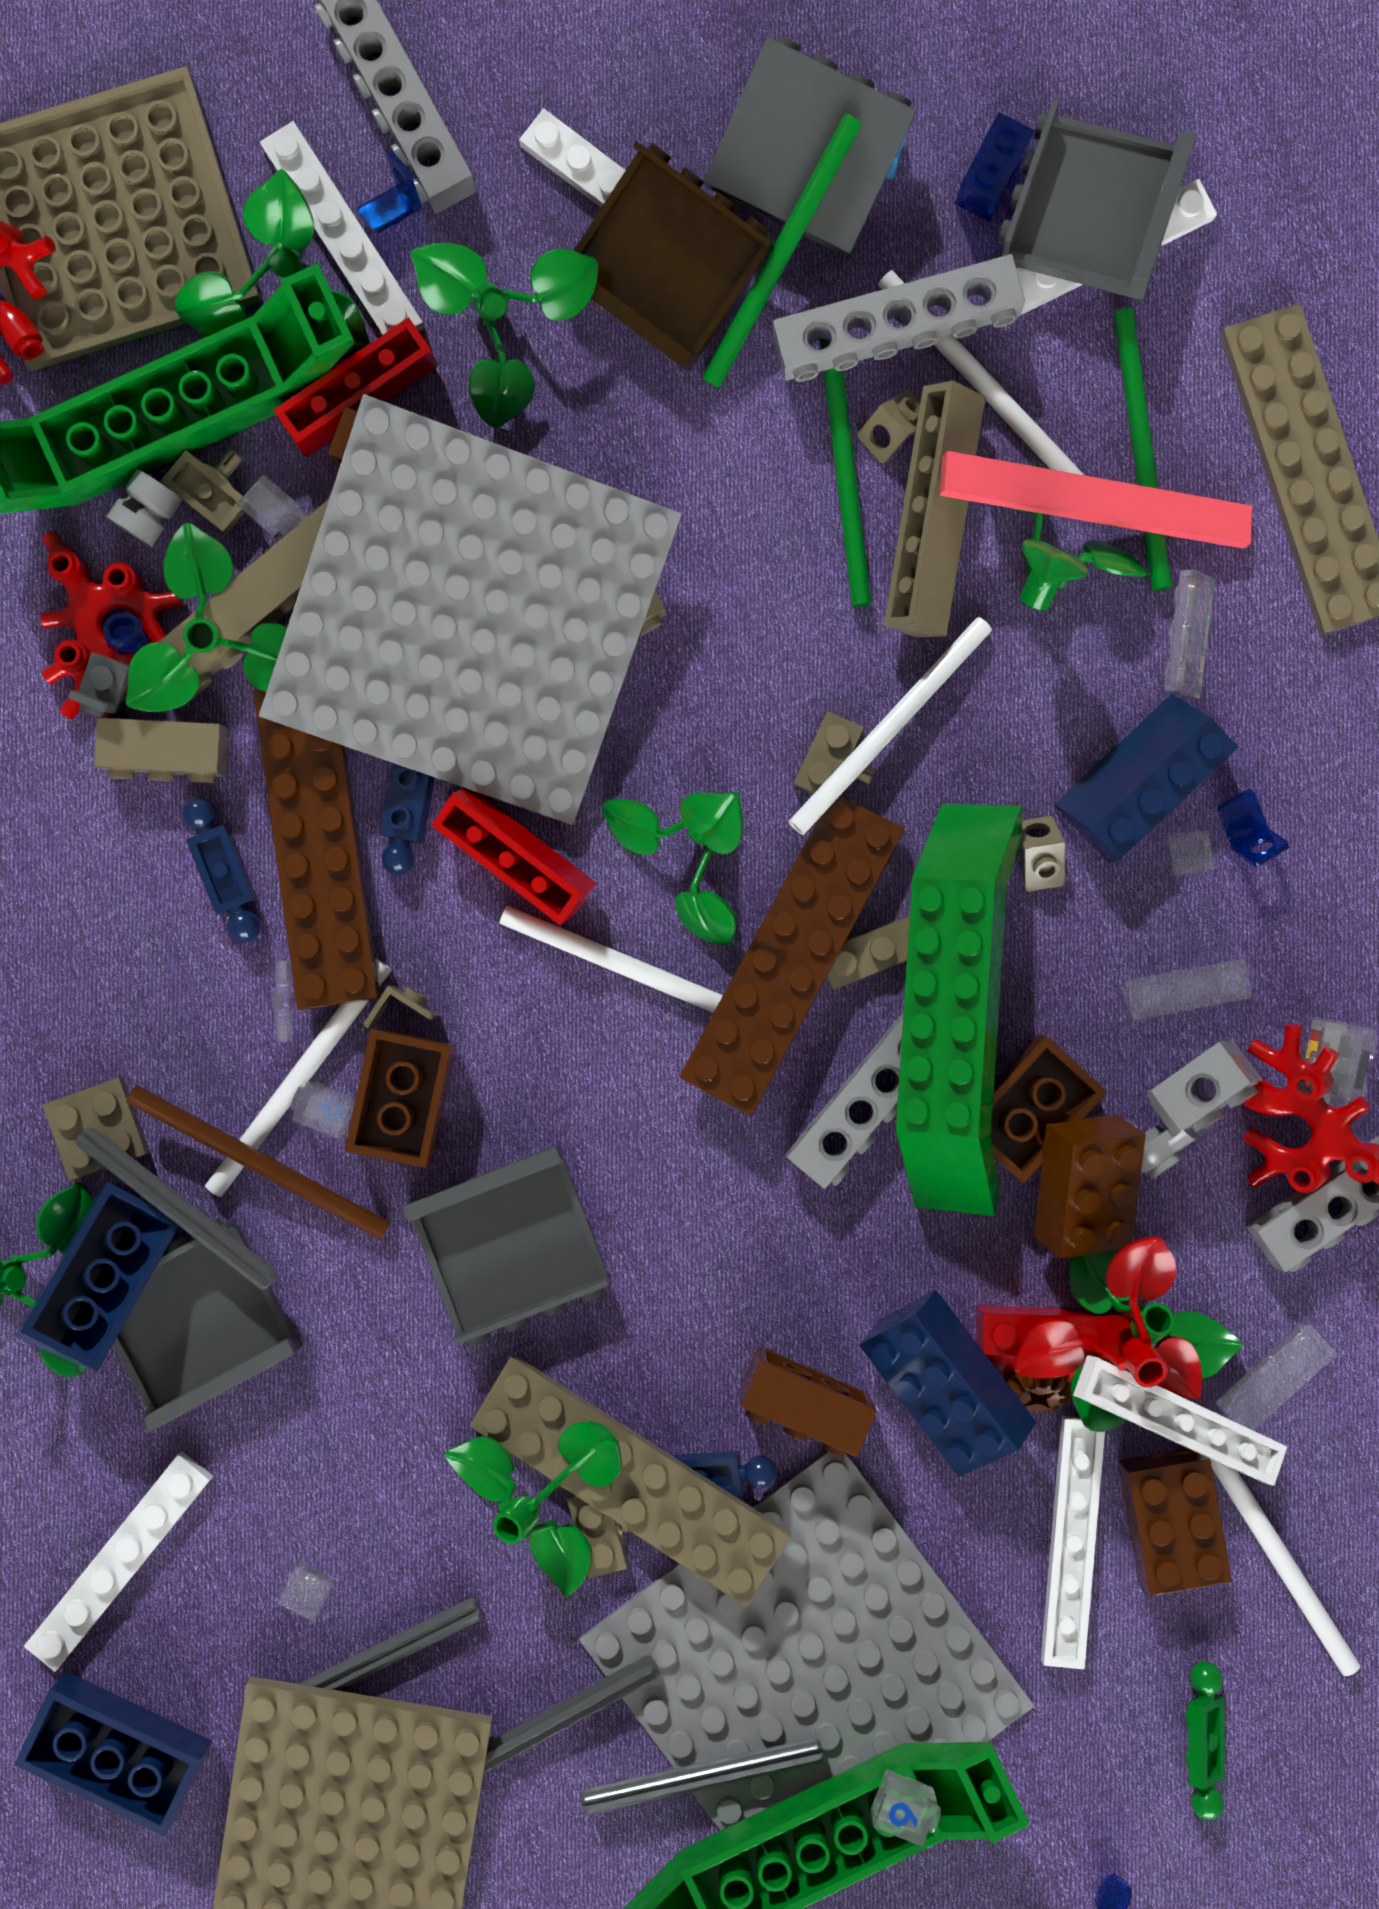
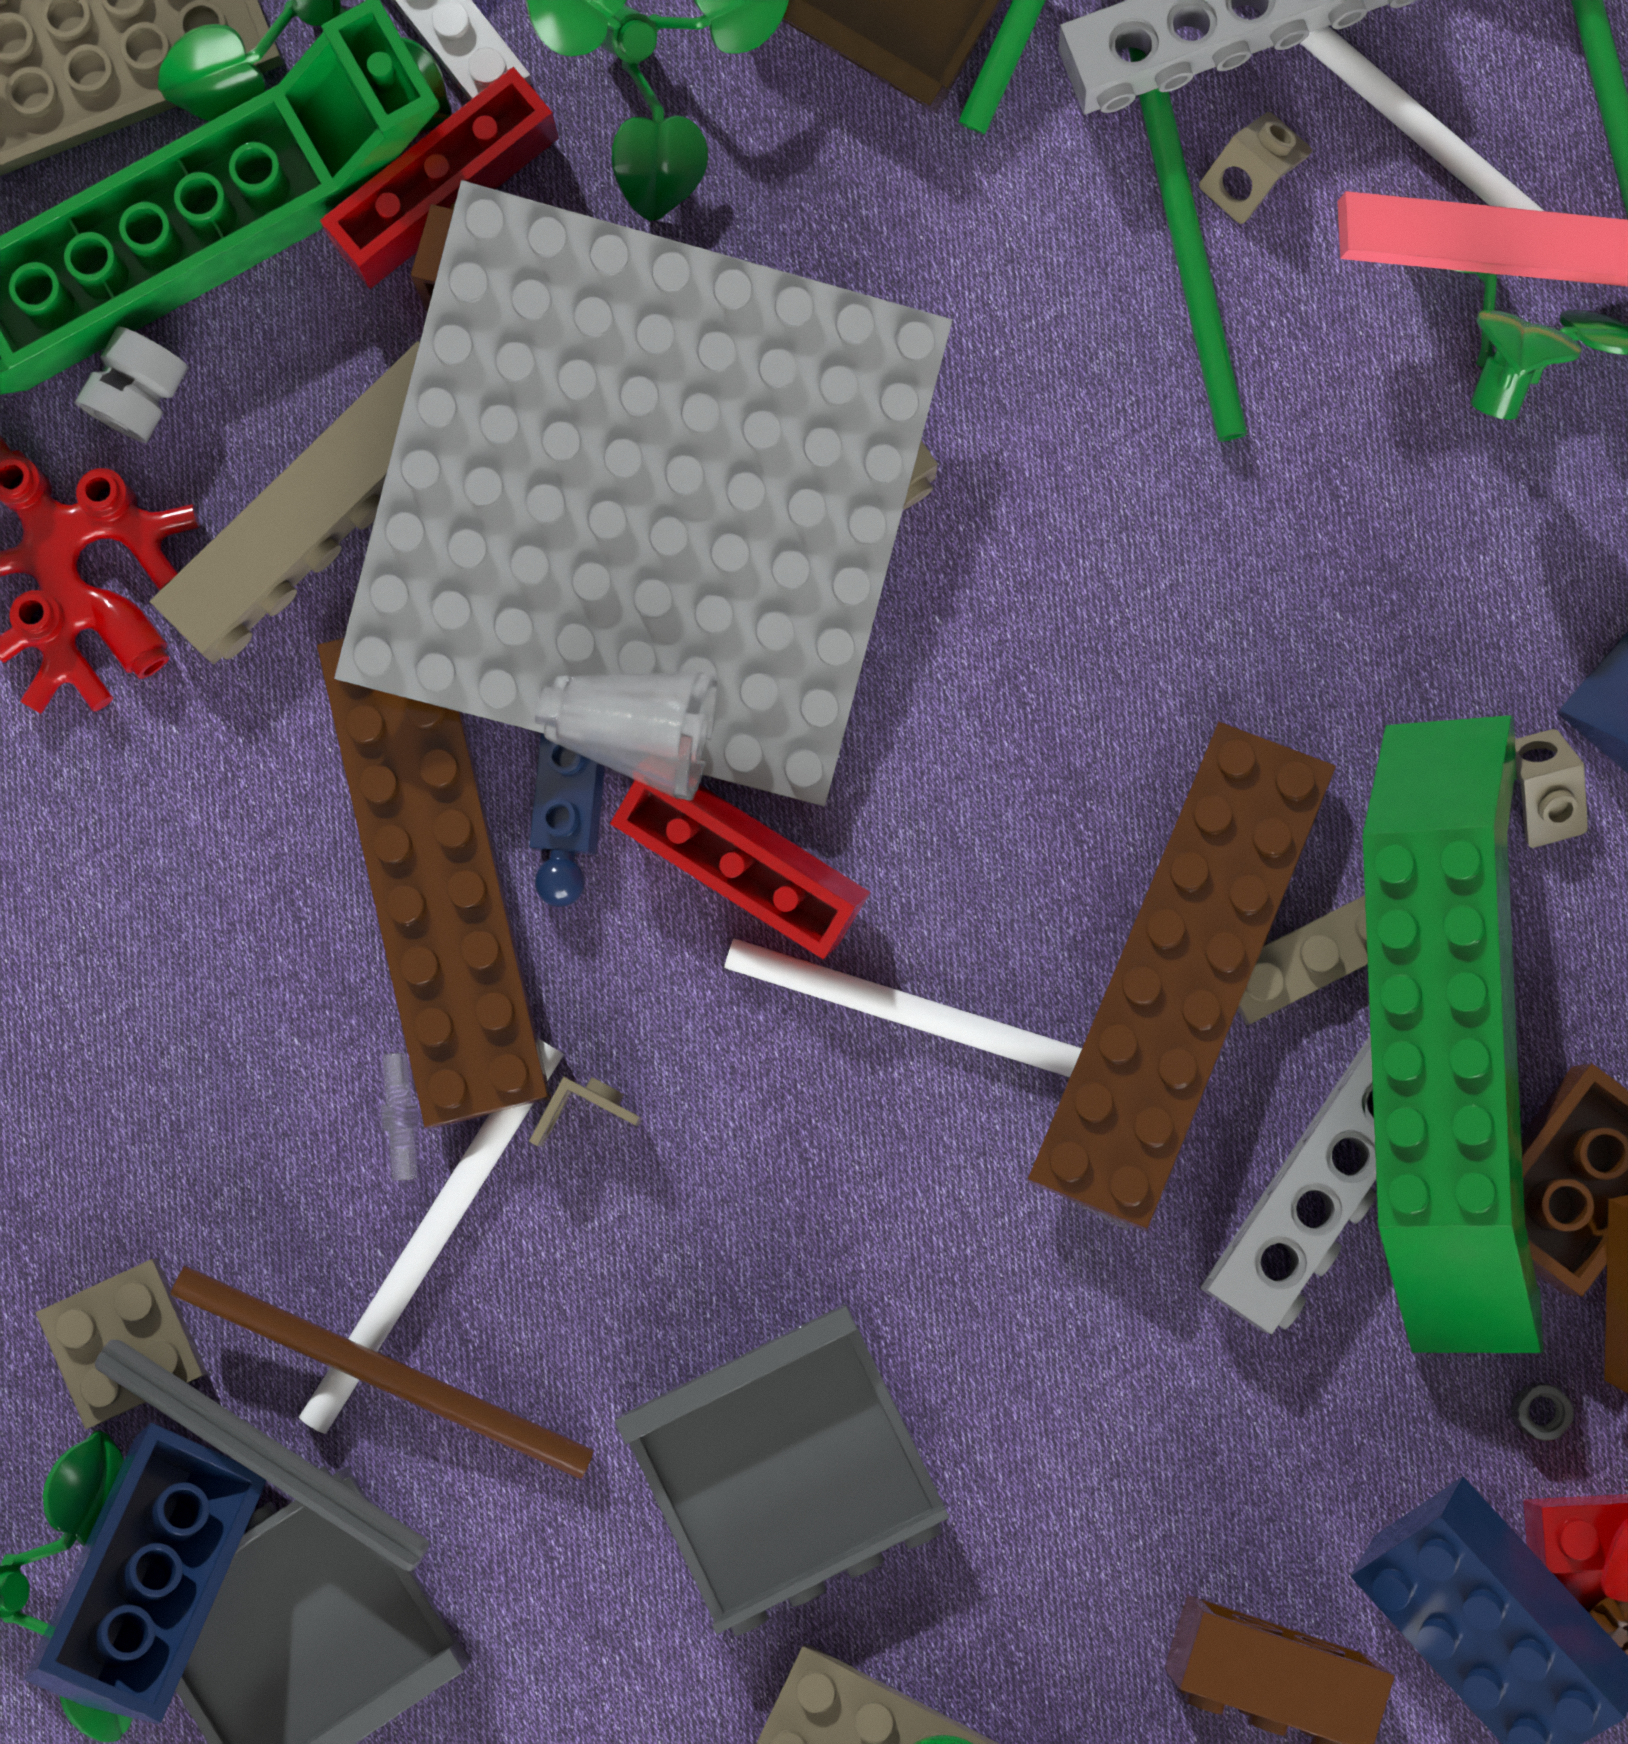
camera: 10 degrees left, 5 degrees down
(102, 686) = (88, 655): dark grey bracket -> none
(124, 633) = (114, 574): clear blue tile -> none
(157, 672) = (172, 628): green plant -> none
(161, 749) = (183, 745): dark tan brick -> none
(207, 488) = (227, 348): dark tan plate -> none
(221, 869) = (288, 922): dark blue plate -> none
(271, 508) = (325, 369): clear brick -> none
(323, 1108) = (476, 1278): clear brick -> none
(401, 1097) = (597, 1250): reddish brown brick -> none
(450, 764) = (635, 724): none -> clear cone
(710, 821) = (1042, 777): green plant -> none
(830, 748) = (1212, 670): dark tan plate -> none
(890, 726) = (1295, 614): white piece -> none
(932, 523) = (1328, 300): dark tan brick -> none
(993, 1265) = (1561, 1420): none -> dark grey axle

